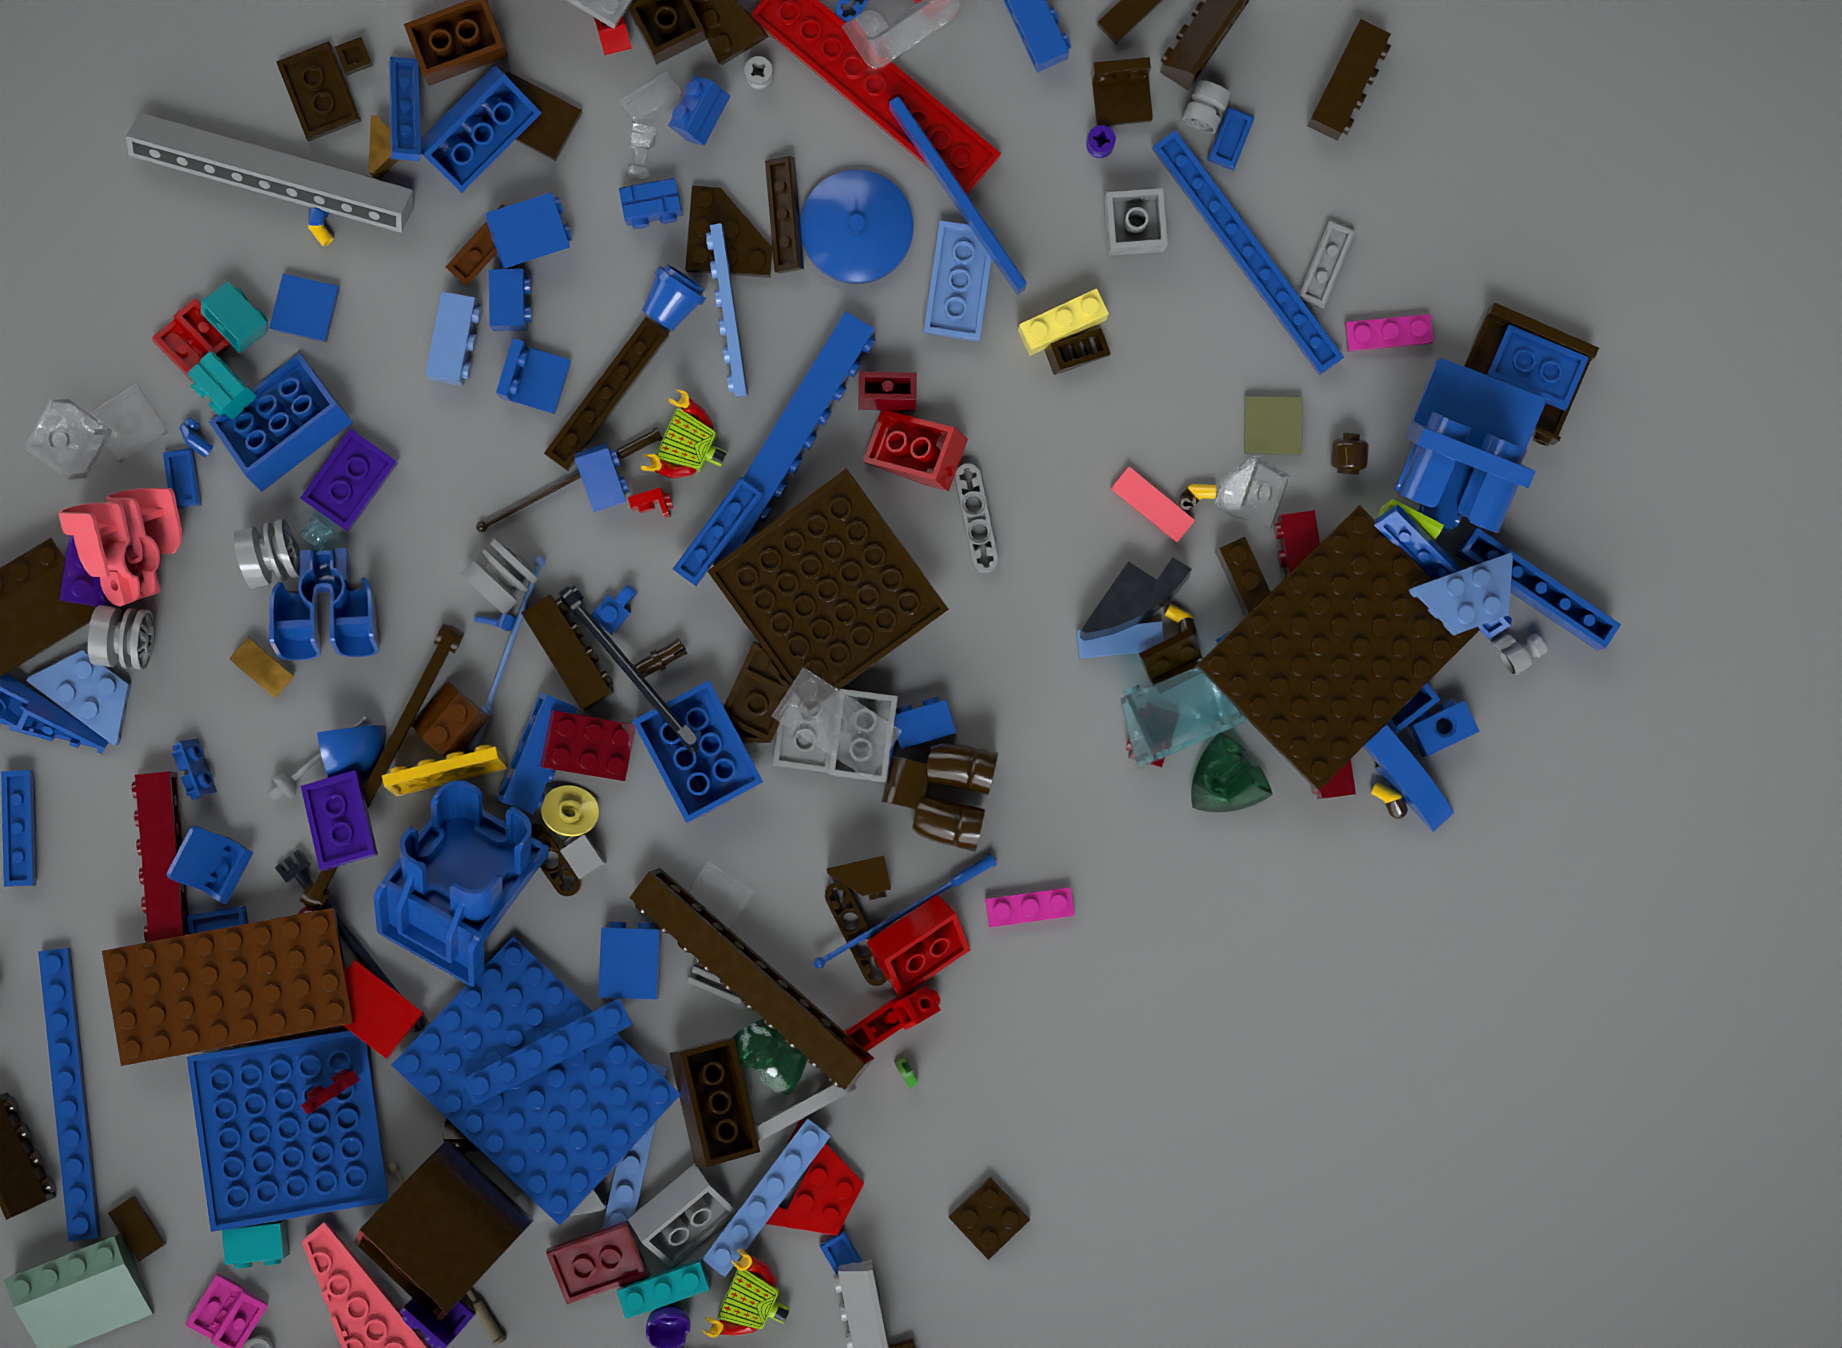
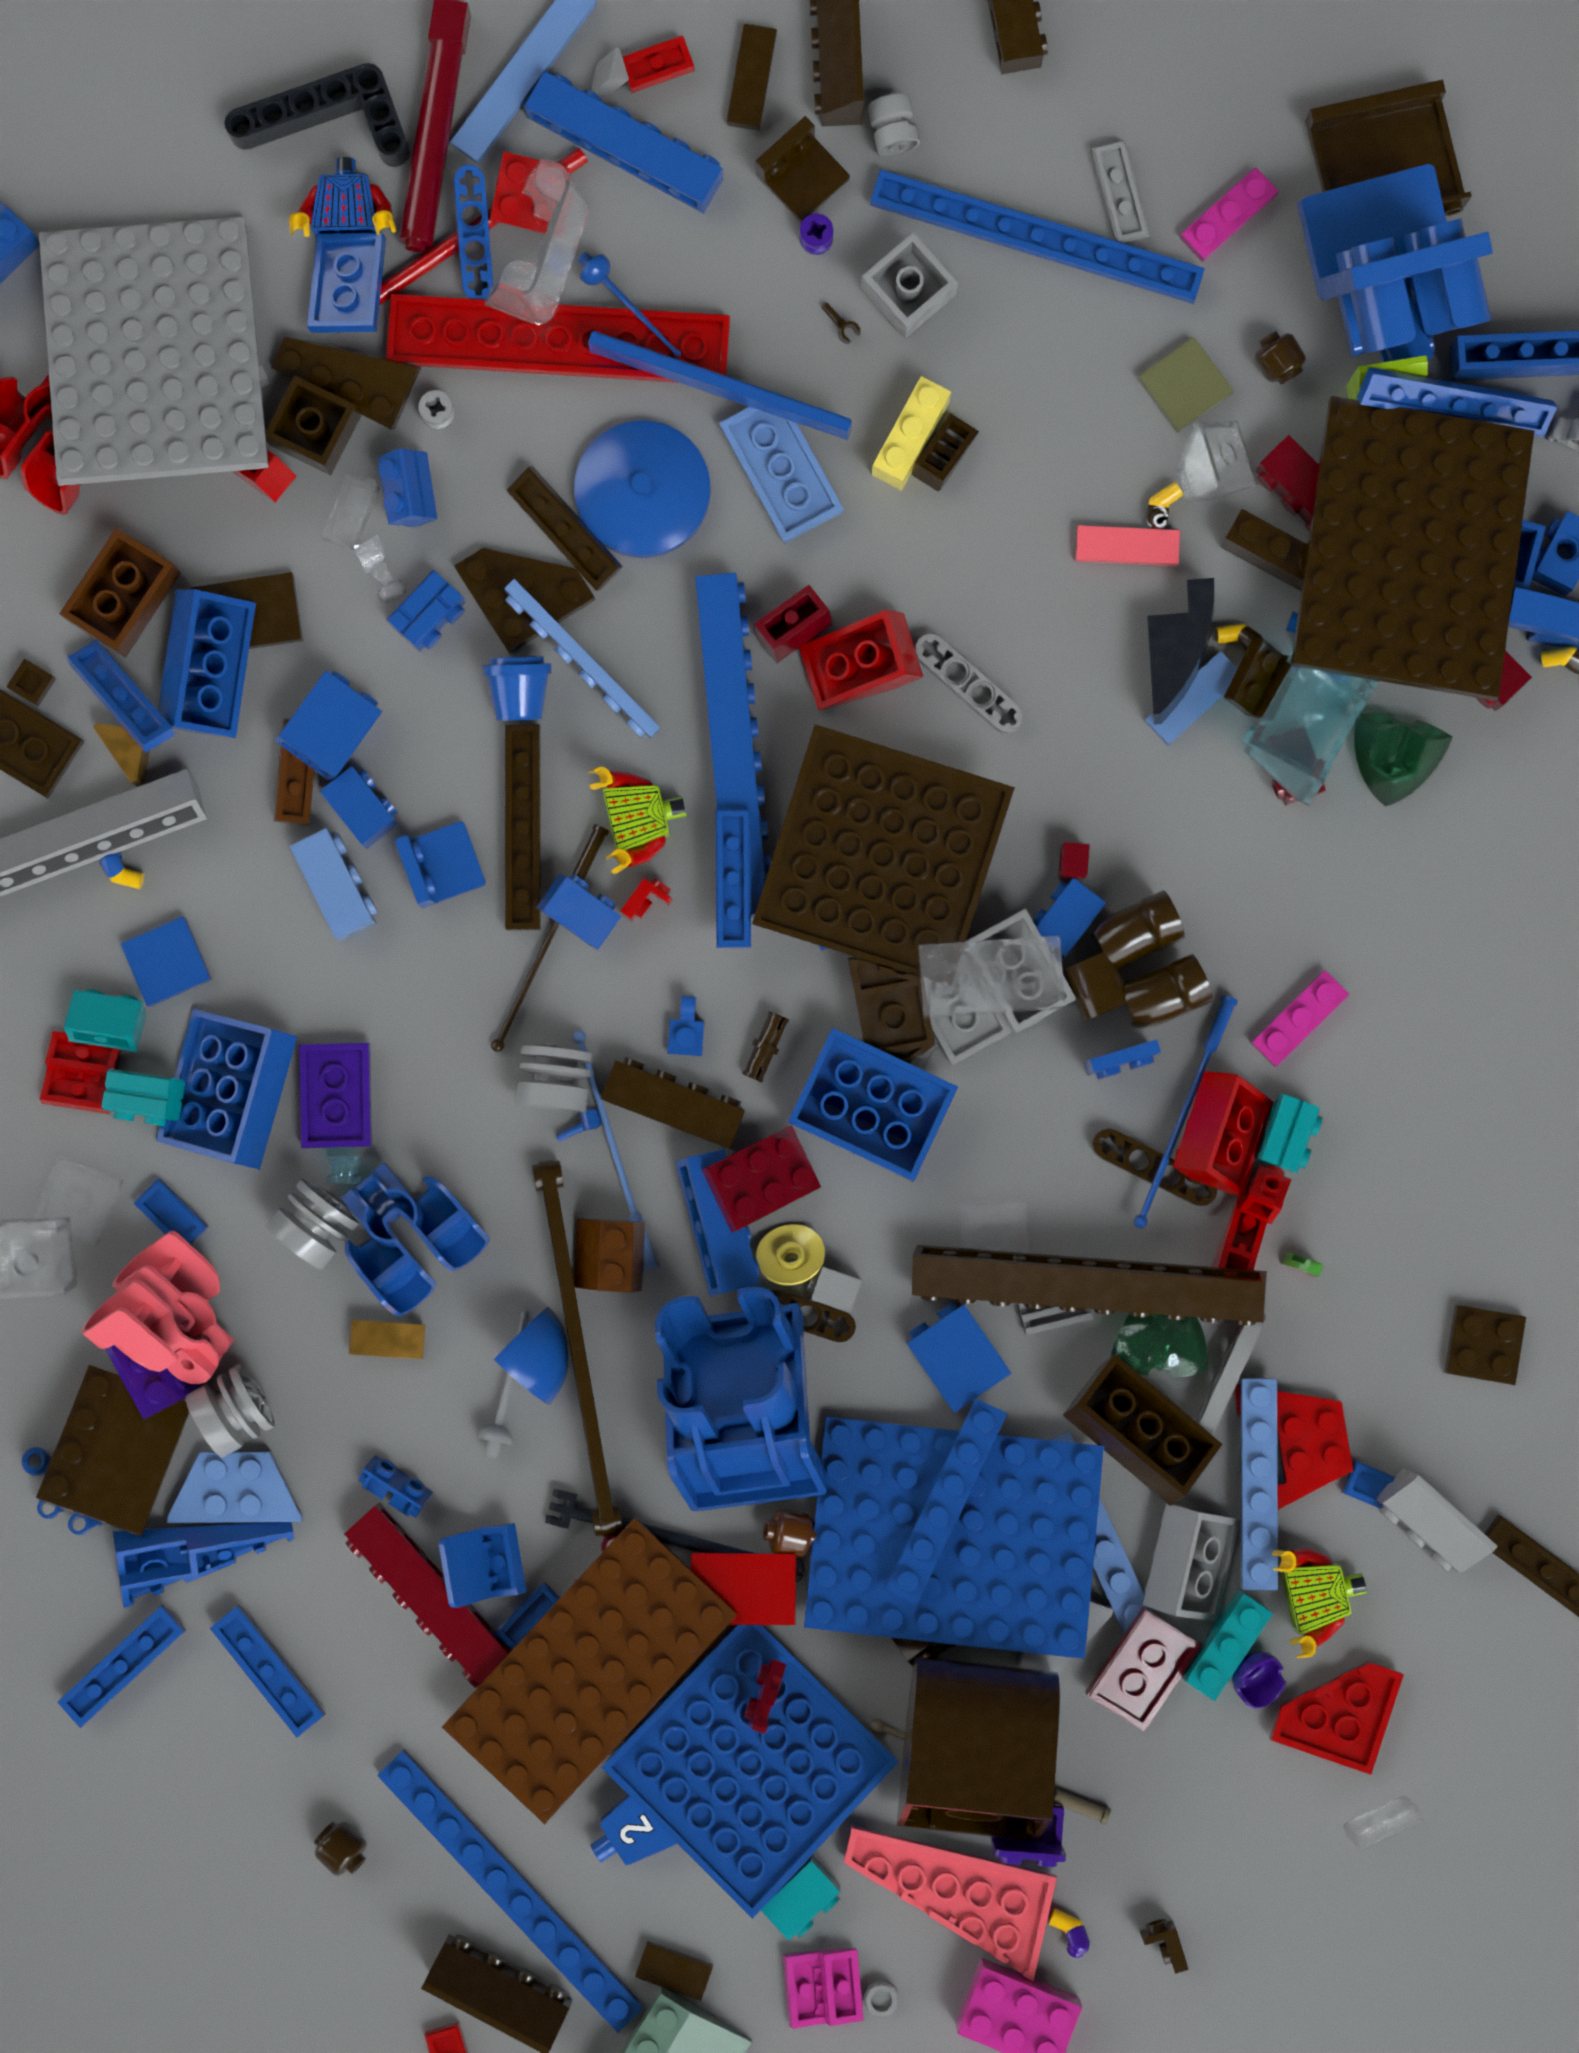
camera: 25 degrees left, 0 degrees up
(173, 1115) = (630, 1834): none -> blue torso
(192, 439) = (154, 1169): blue arm -> none
(339, 820) = (577, 1428): dark purple plate -> none
(430, 995) = (789, 1532): none -> reddish brown head
(453, 768) = (650, 1295): yellow plate -> none
(572, 598) = (638, 1050): black hinge -> none
(864, 877) = (1123, 1105): dark brown slope -> none
(898, 850) = (1135, 1056): none -> blue plate
(936, 58) = (596, 271): none -> blue sword
(956, 689) = (1073, 861): none -> dark red slope
(962, 978) = (1289, 1133): none -> teal brick
(1072, 212) = (841, 323): none -> dark brown hand
(1231, 138) = (938, 139): blue tile -> none
(1469, 595) = (1501, 404): medium blue wing -> none
(1538, 366) = (1397, 139): blue plate -> none

